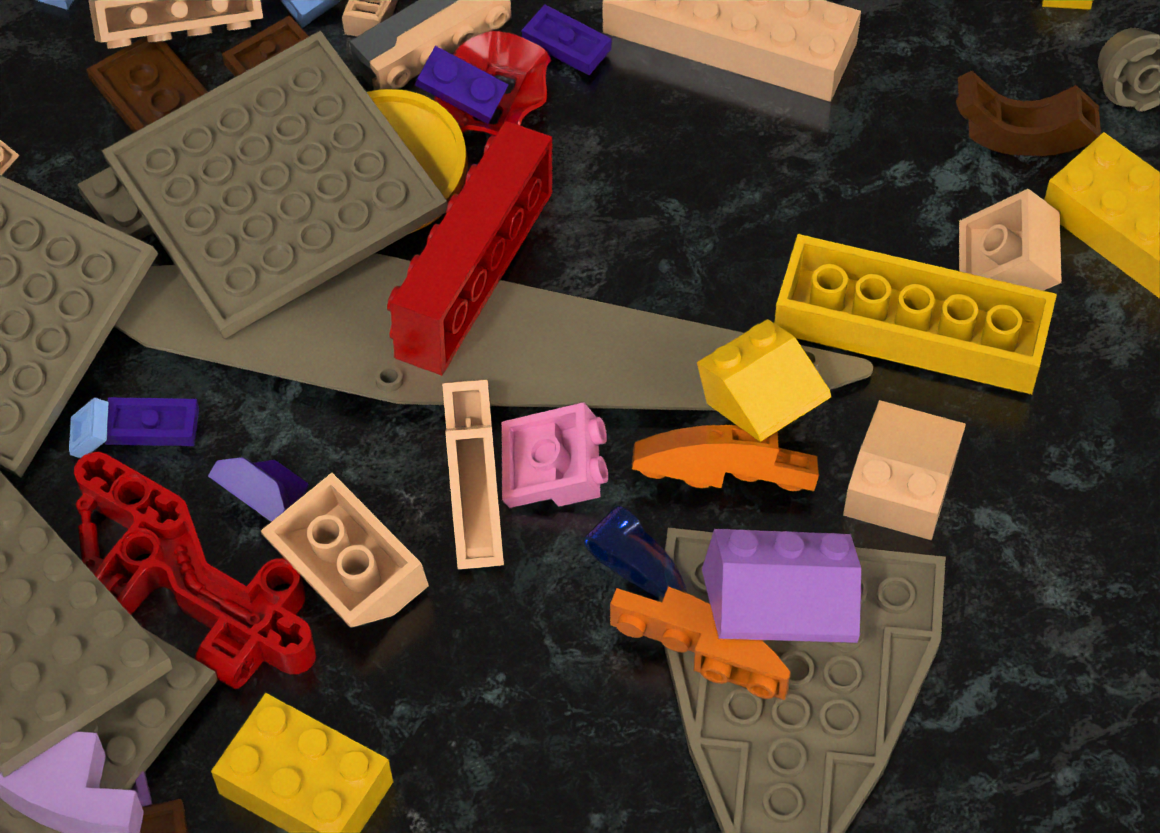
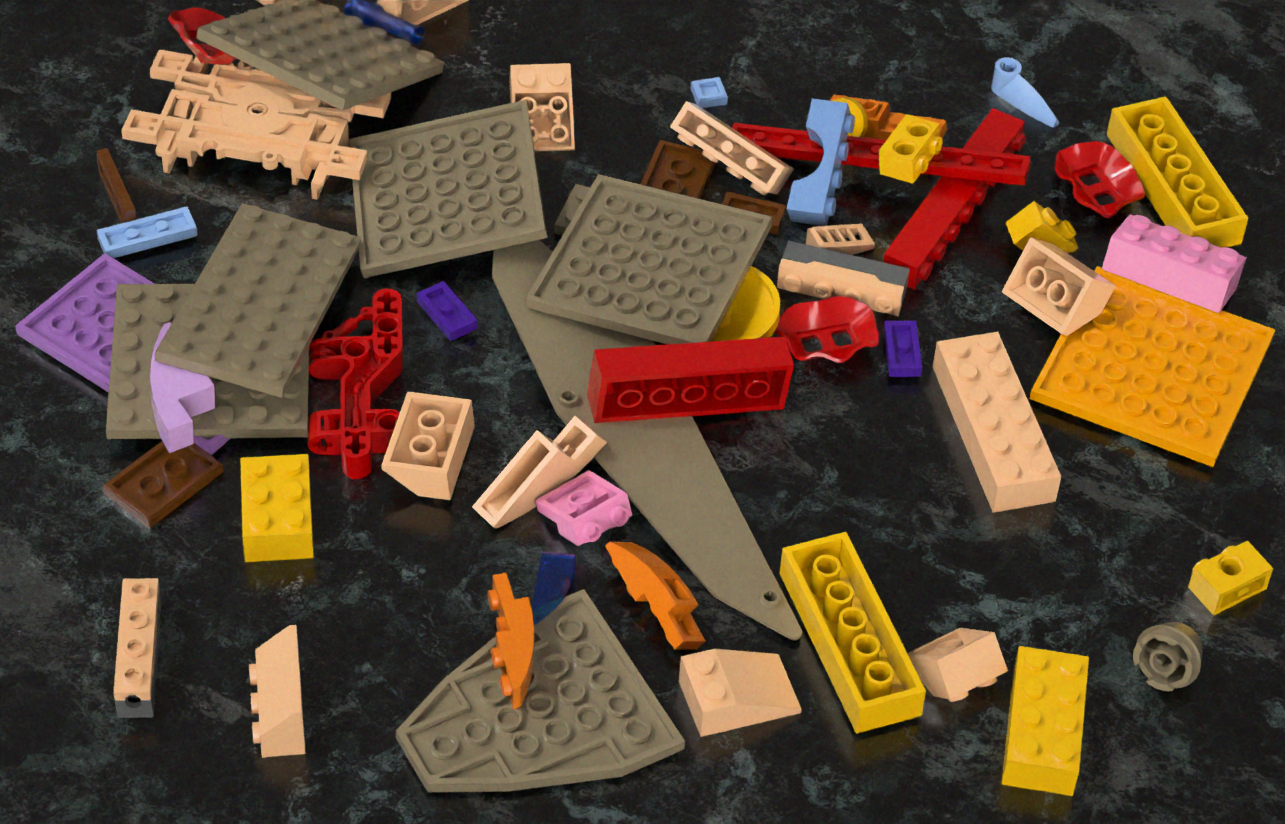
camera: 50 degrees right, 10 degrees down
(88, 428) = (417, 284): light blue tile -> none
(261, 485) = (445, 379): slope -> none
(461, 84) = (809, 311): dark purple plate -> none
(762, 380) = (720, 570): yellow slope -> none
(783, 585) = (575, 652): medium lavender slope -> none
(1027, 127) = (1061, 615): reddish brown arch -> none

